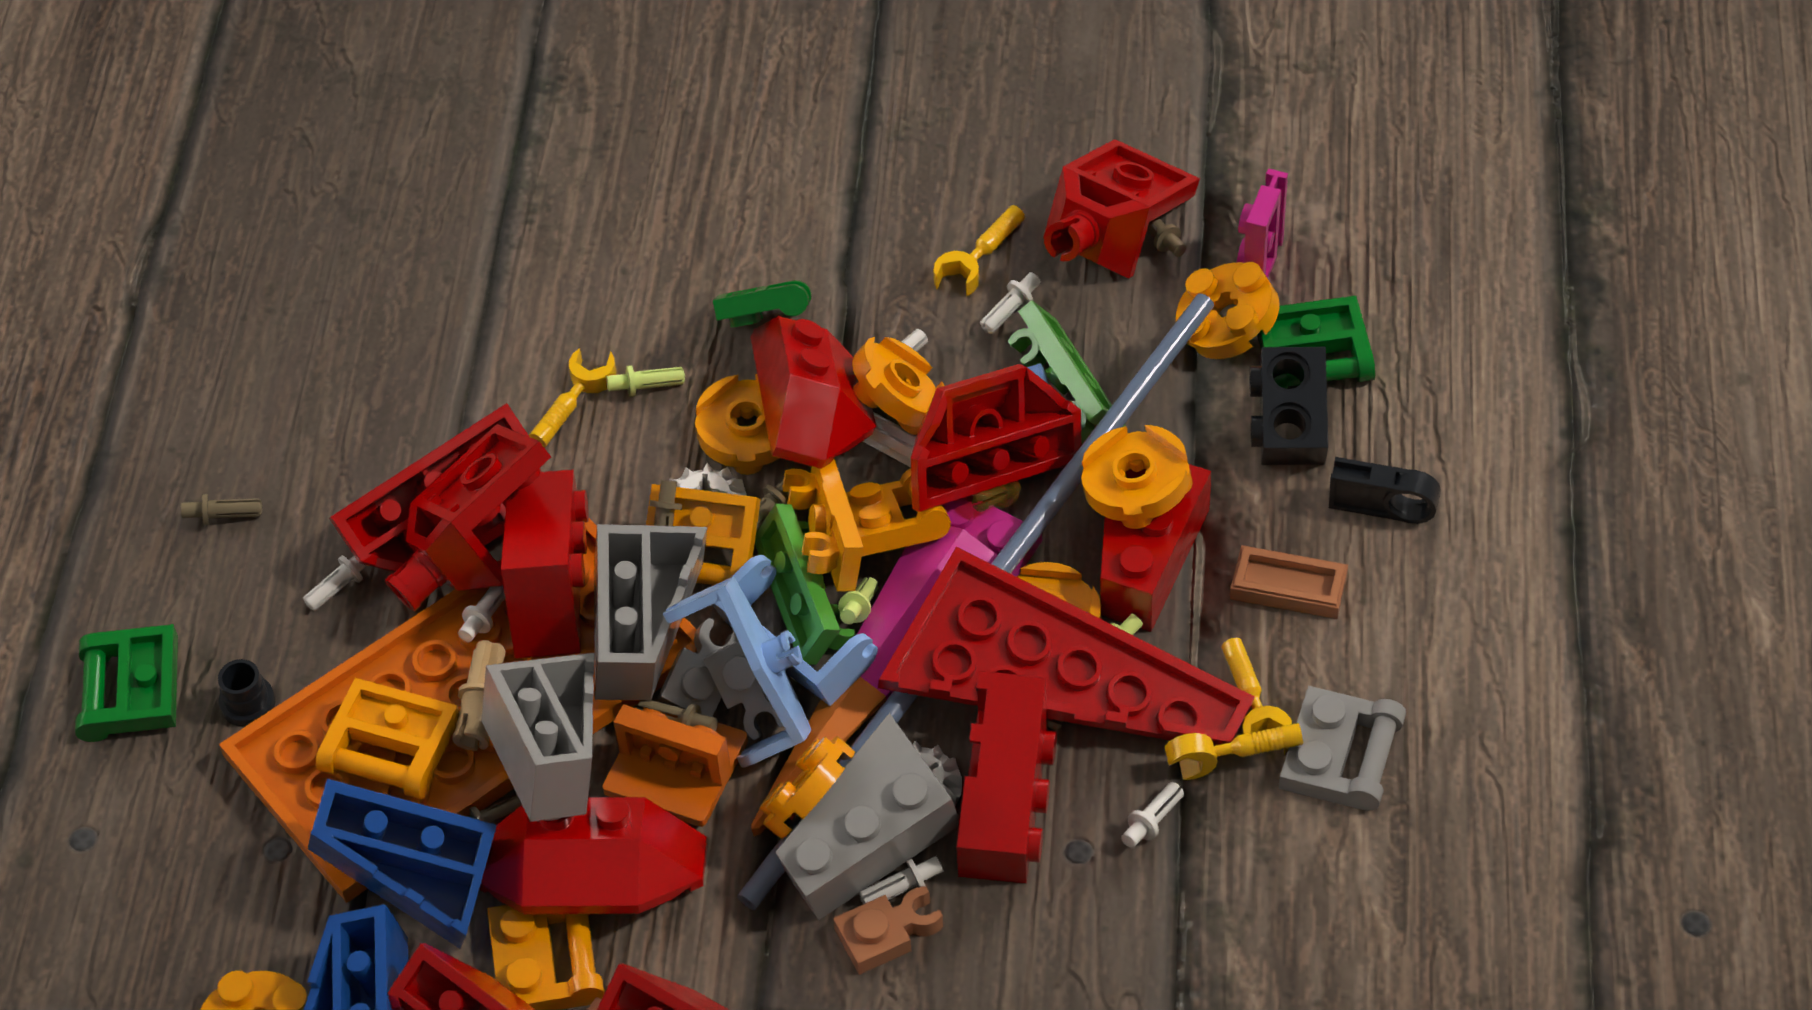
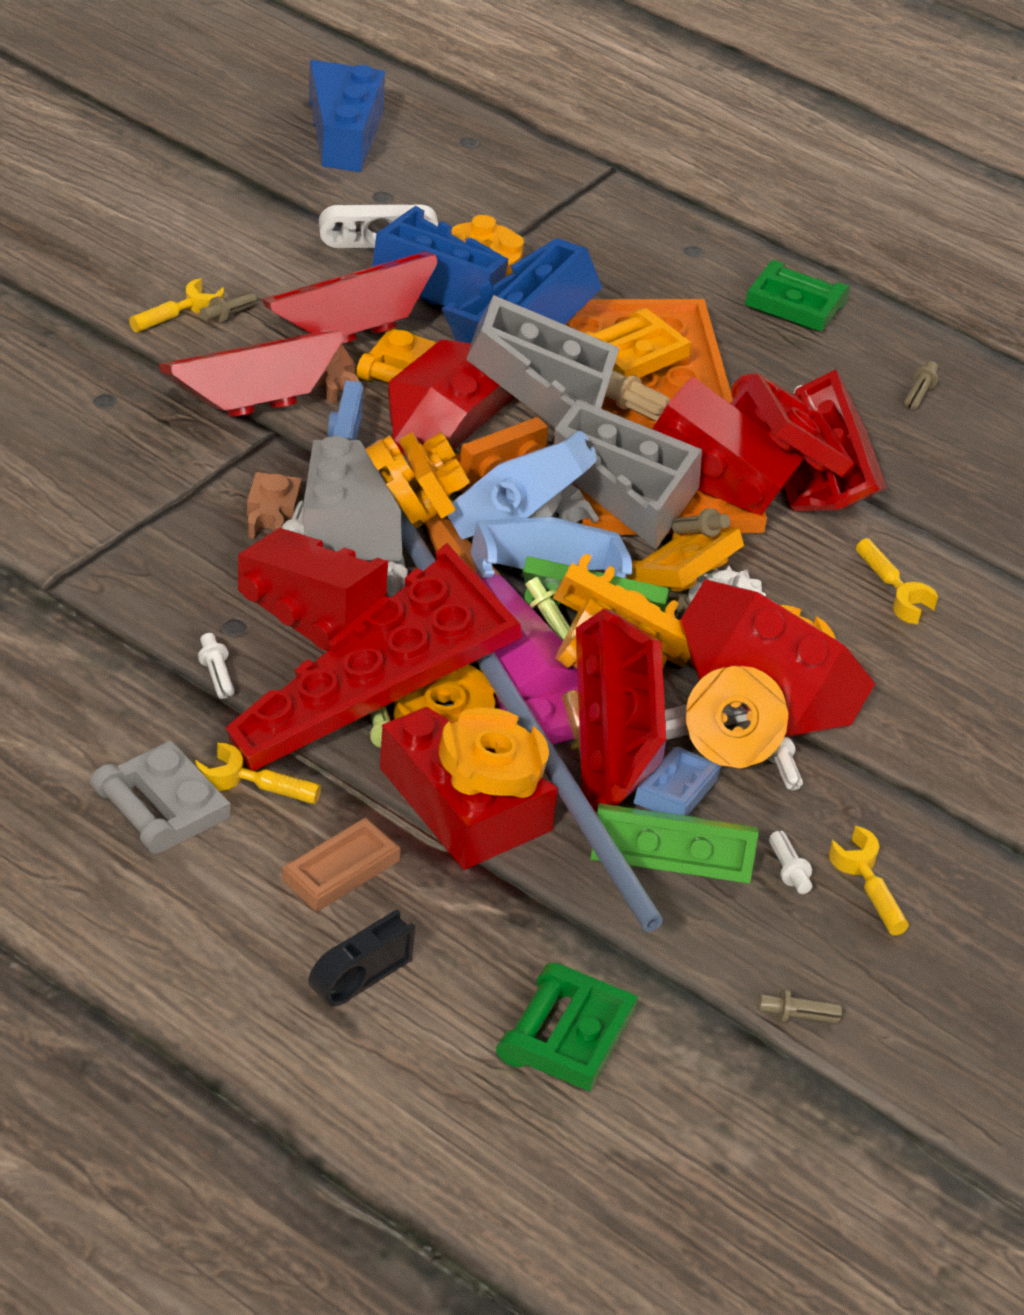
camera: 115 degrees right, 10 degrees down
(248, 704) = (743, 332): black piece -> none
(645, 379) = (882, 612): yellowish green piece -> none
(720, 927) = (348, 418): none -> medium blue plate
(747, 305) = (895, 686): green plate -> none
(763, 772) = (430, 471): none -> light orange plate
(1108, 204) = (847, 968): red plate -> none
(1199, 755) = (229, 709): yellow piece -> none
(1226, 285) = (652, 973): light orange plate -> none
(1264, 222) = (713, 1035): dark pink plate -> none
(1300, 406) = (499, 942): black brick -> none

